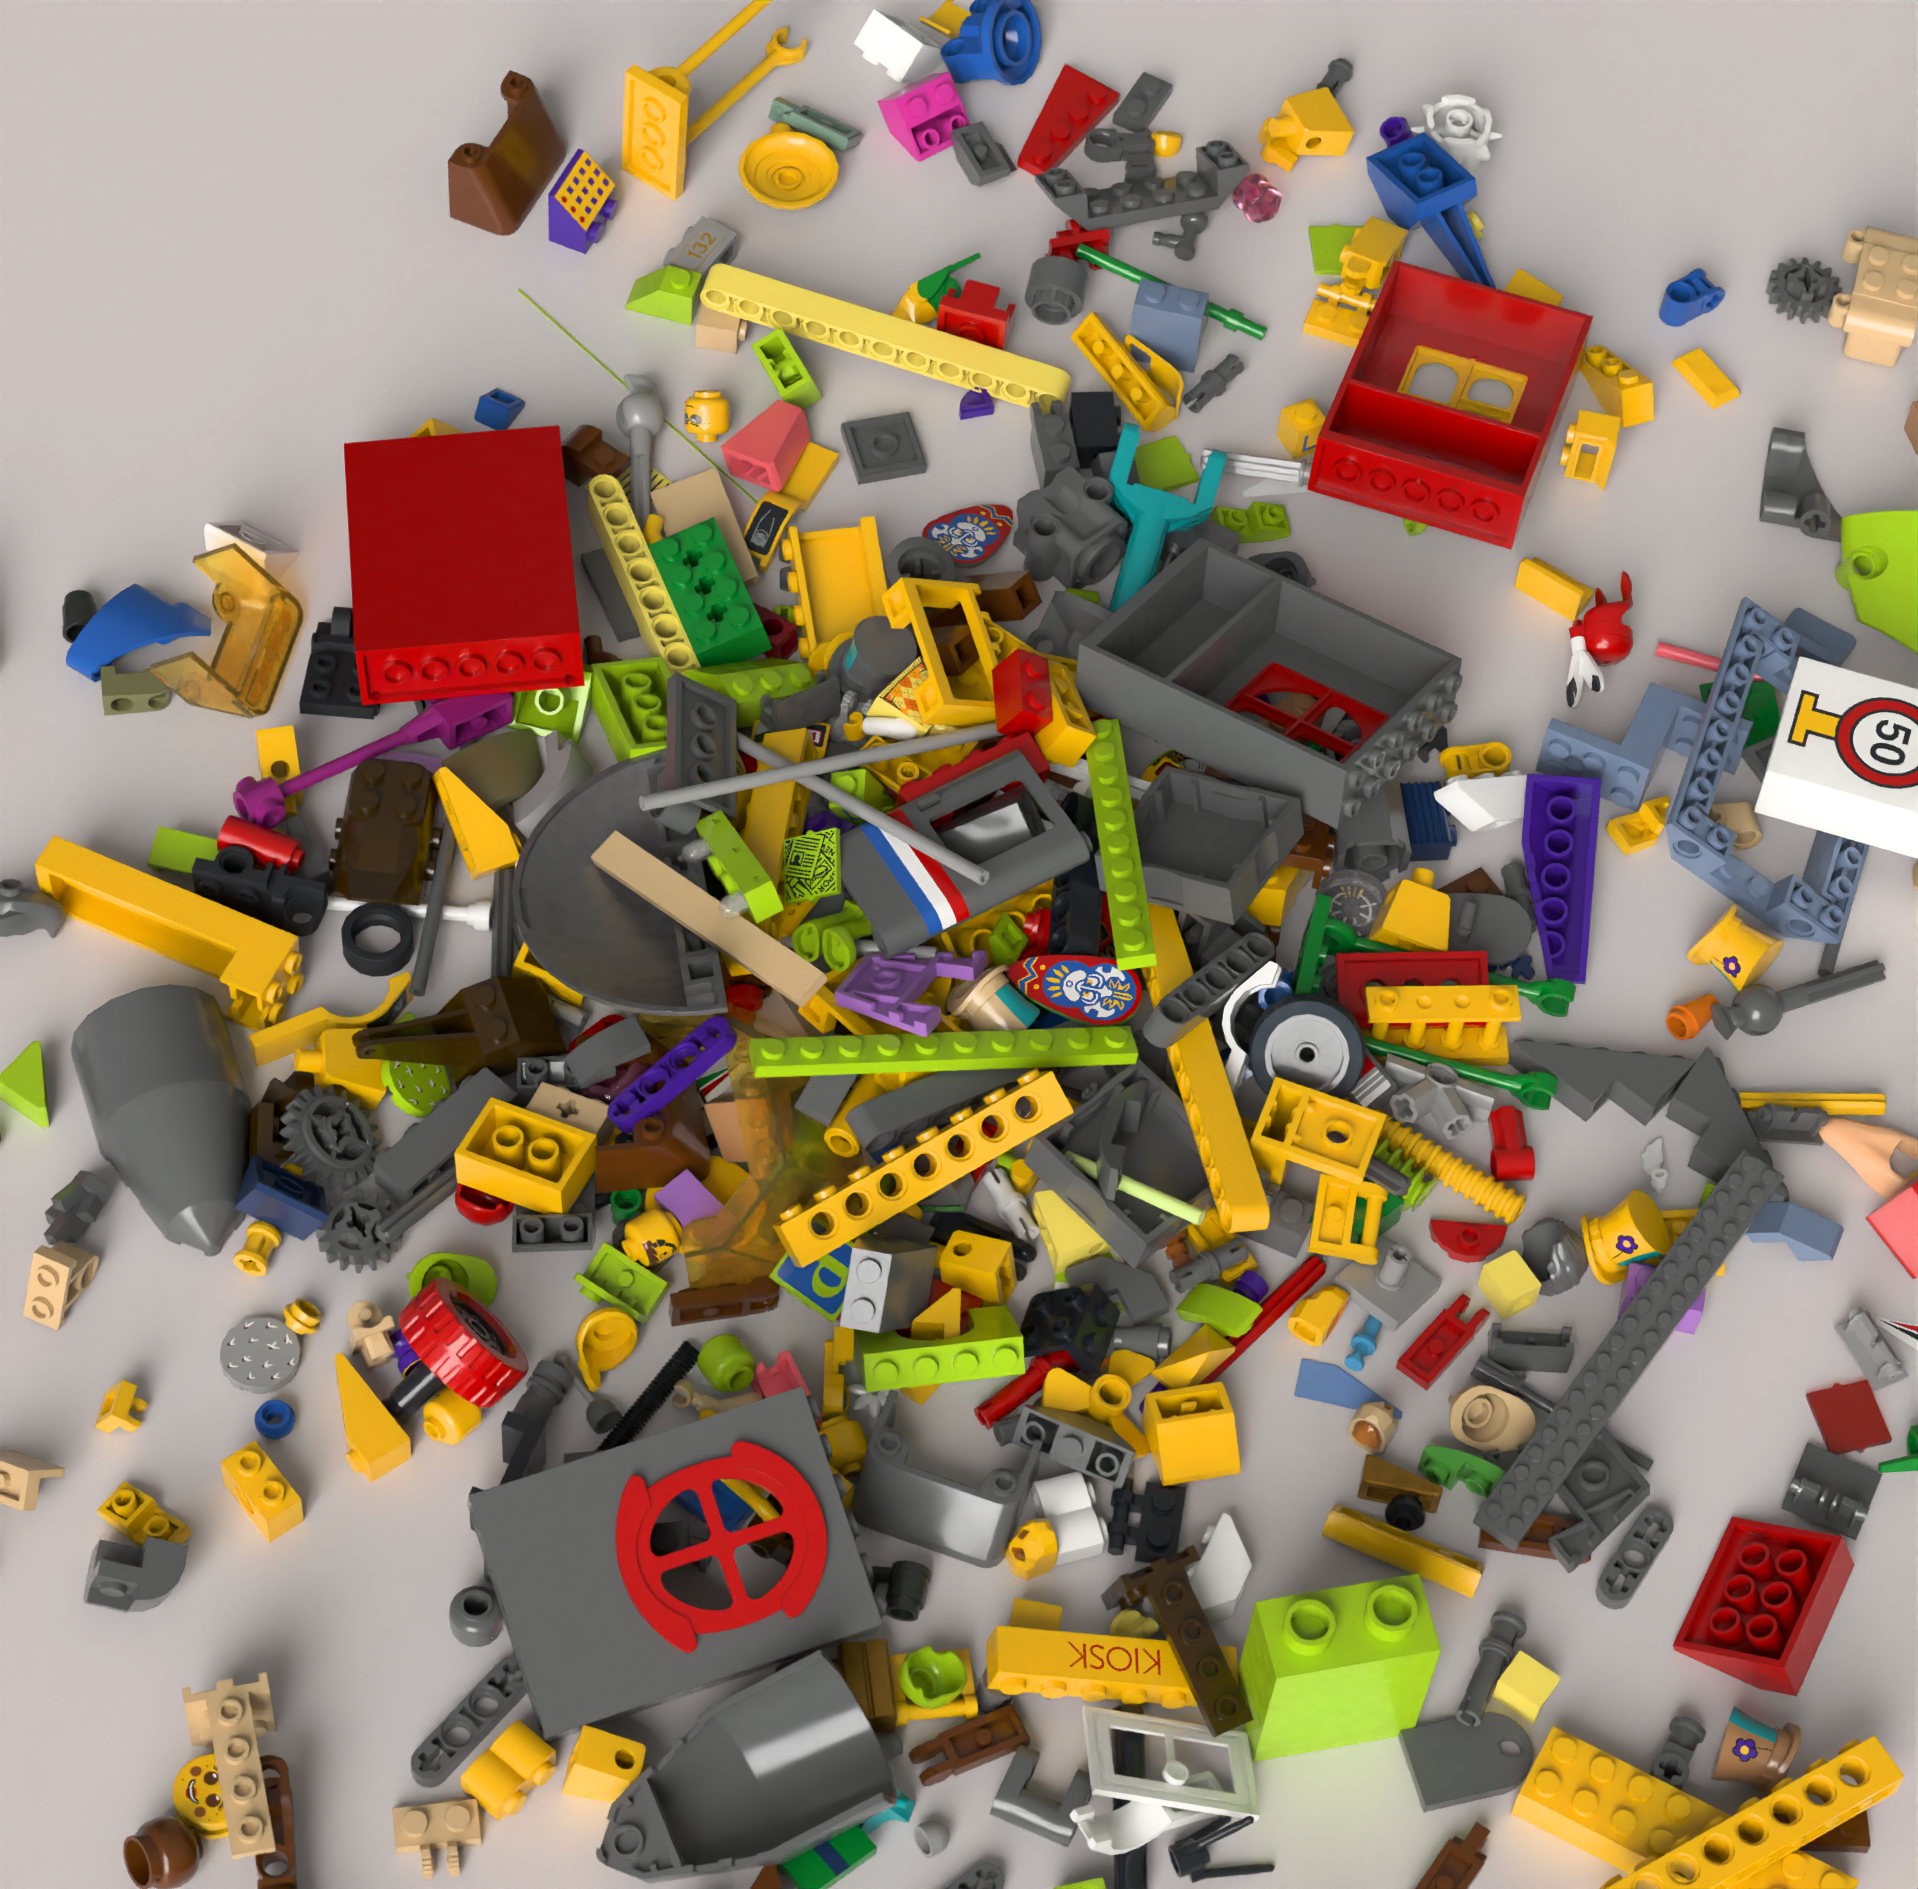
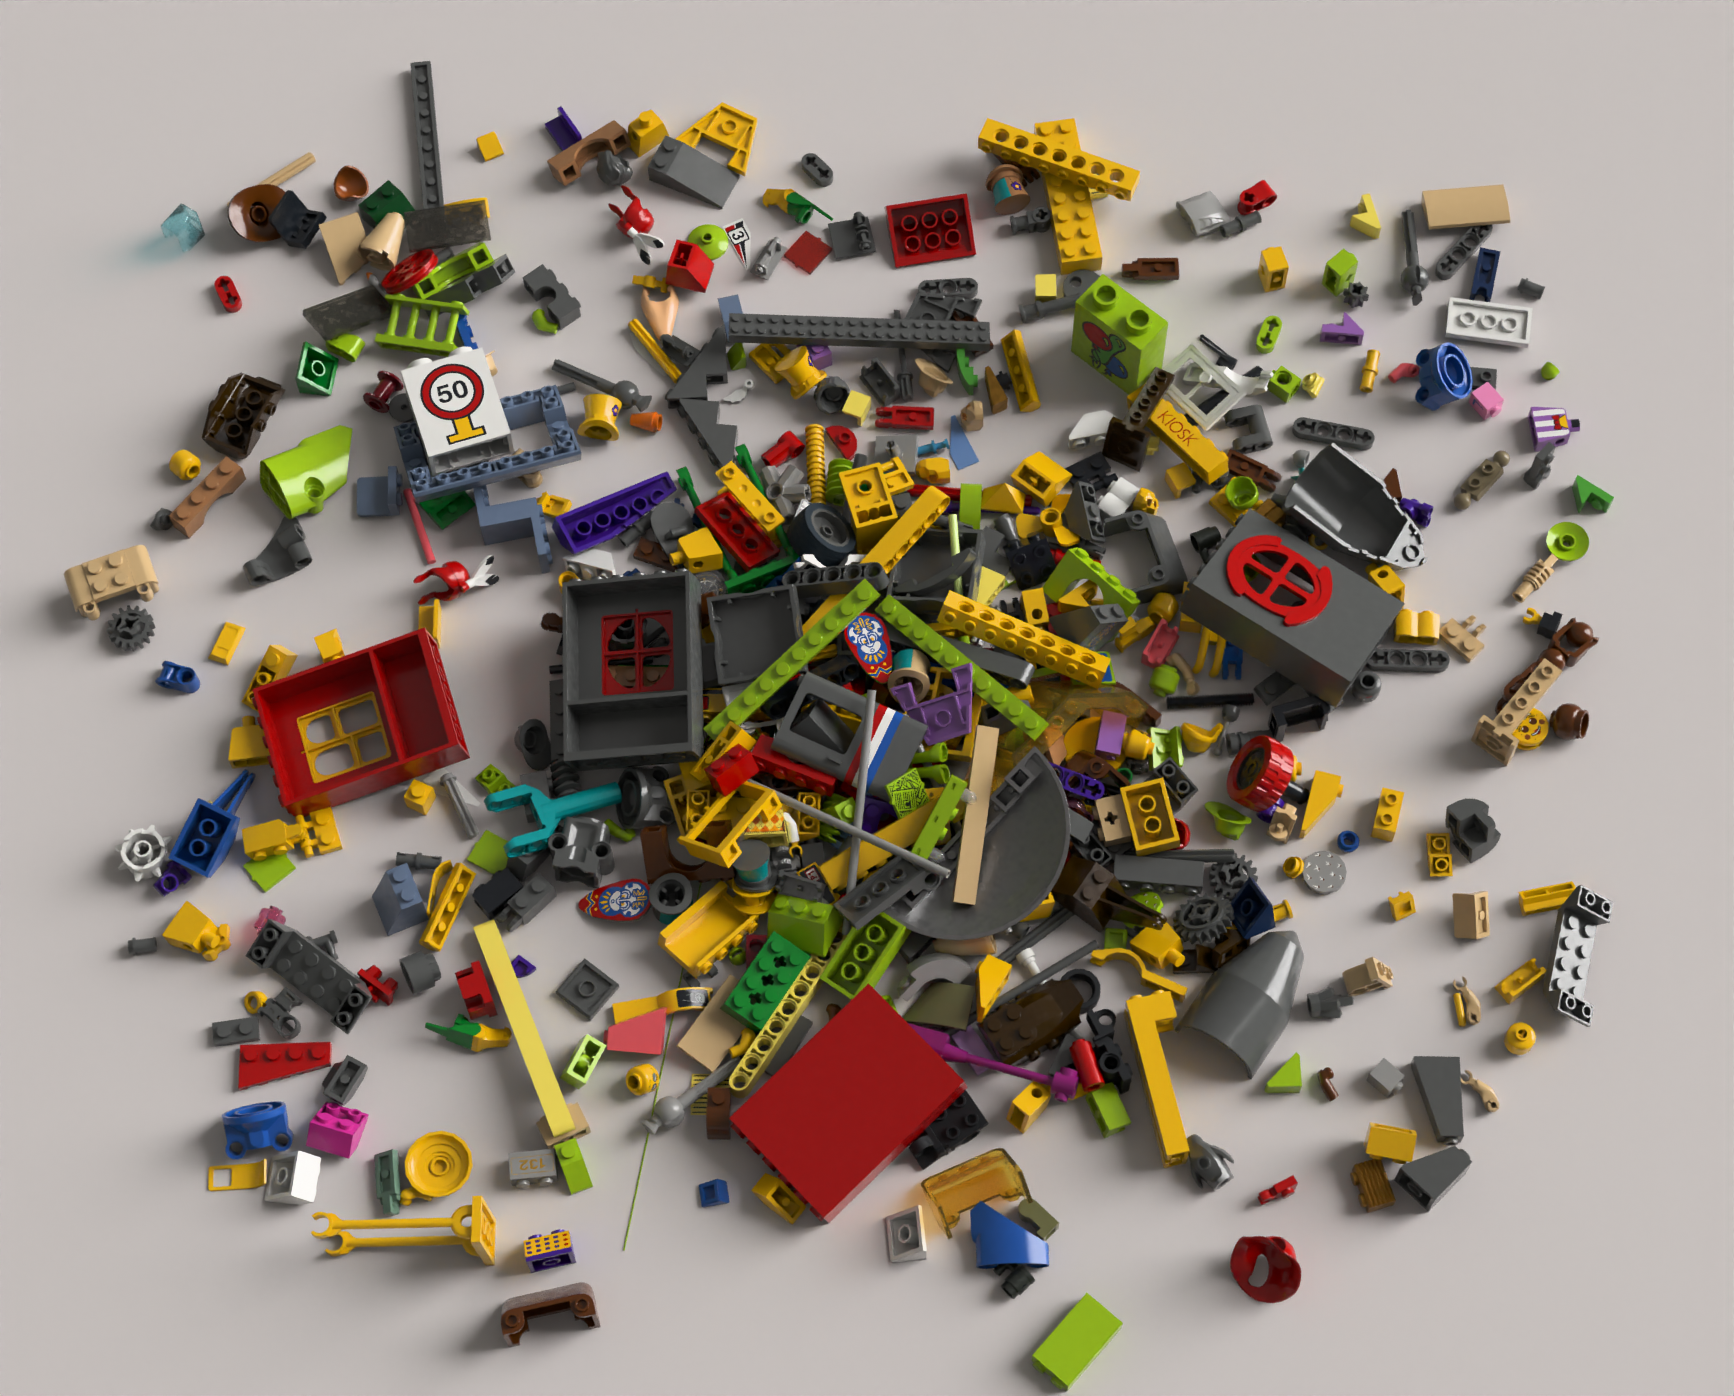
camera: 120 degrees left, 10 degrees up
(1232, 319) = (365, 883): green bar -> none

